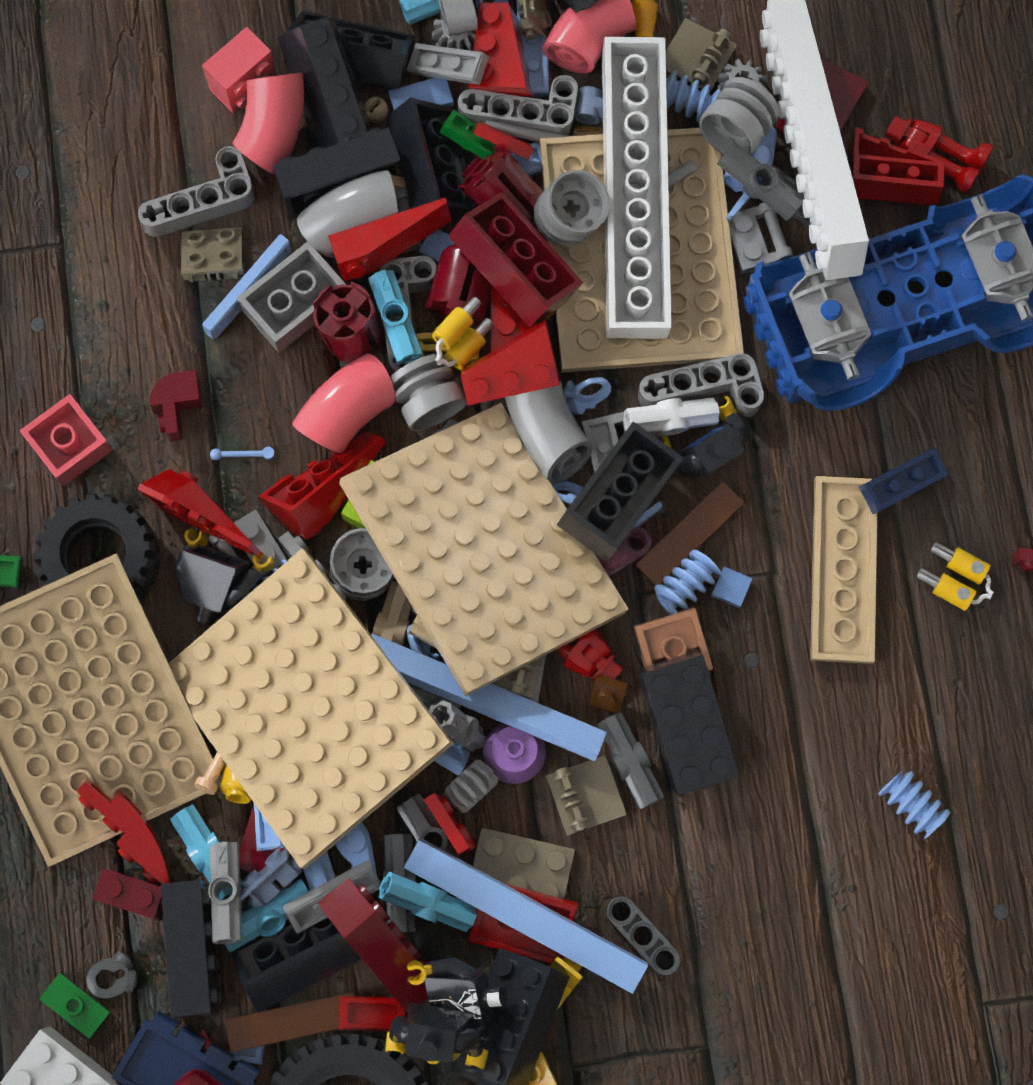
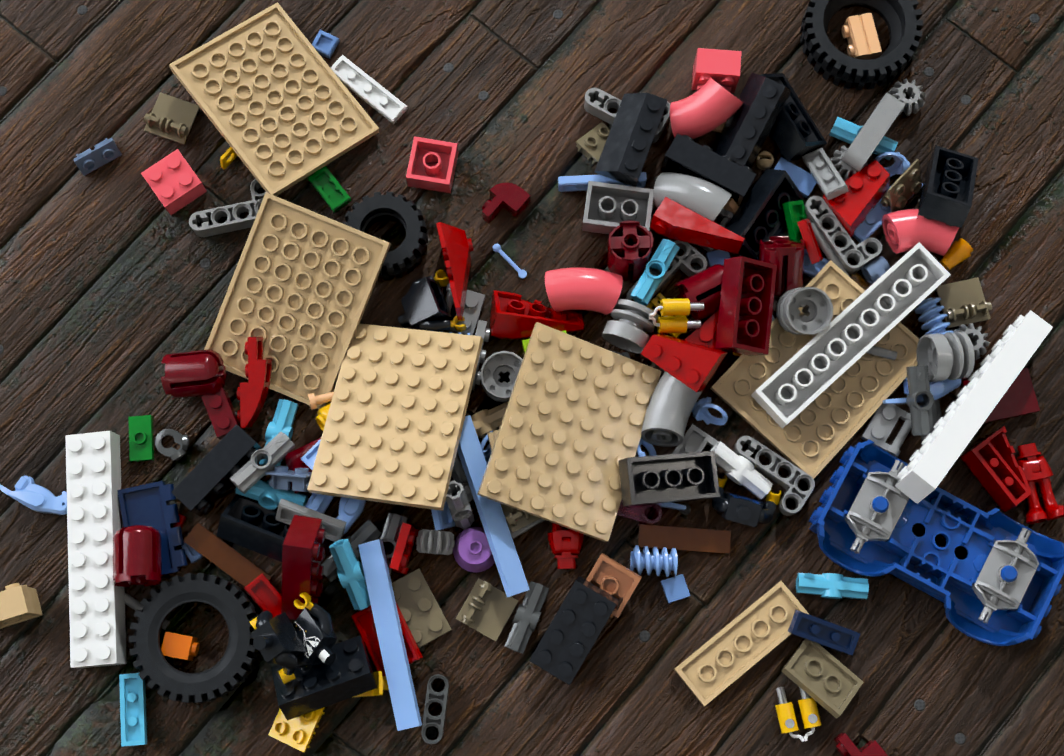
camera: 50 degrees right, 0 degrees up
(60, 885) = (193, 373): none -> dark red cylinder
(232, 214) = (631, 137): none -> black slope
(608, 694) = (552, 572): reddish brown plate -> none
(864, 432) = (832, 585): none -> medium azure piece
(945, 521) = (822, 677): none -> dark tan plate

